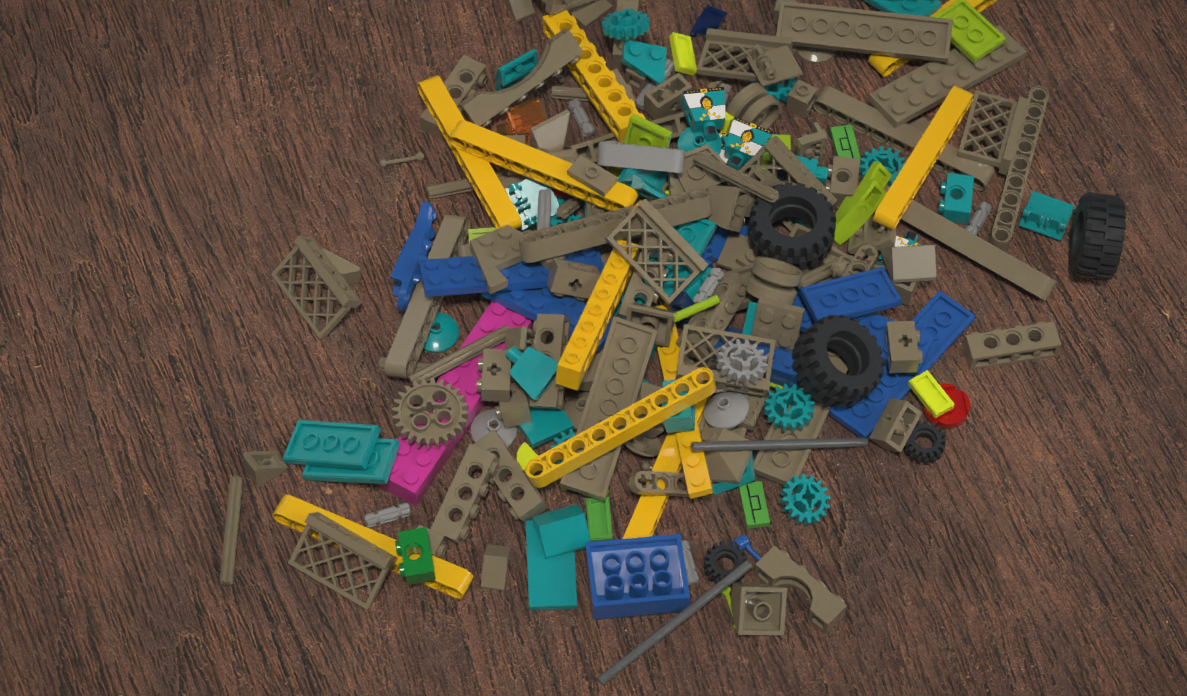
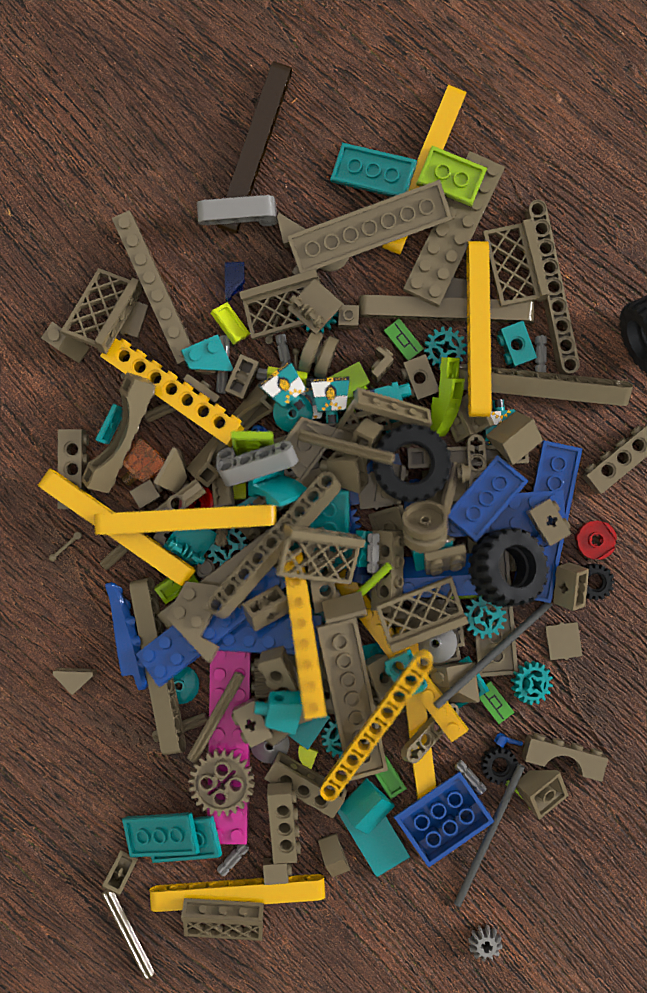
camera: 30 degrees left, 30 degrees up
(330, 276) = (67, 696): dark tan fence -> none
(415, 542) = (273, 888): green brick -> none
(519, 337) = (255, 684): dark tan slope -> none
(544, 209) = (209, 557): light grey axle -> none
(581, 118) = (182, 429): light grey axle -> none
(592, 175) = (232, 514): dark tan plate -> none
(625, 24) = (174, 336): teal gear -> none
(742, 362) = (445, 626): light grey gear -> none
(861, 485) = (563, 640): none -> dark tan piece
(931, 394) = (584, 541): neon yellow tile -> none
(1046, 215) = (592, 319): teal hinge -> none

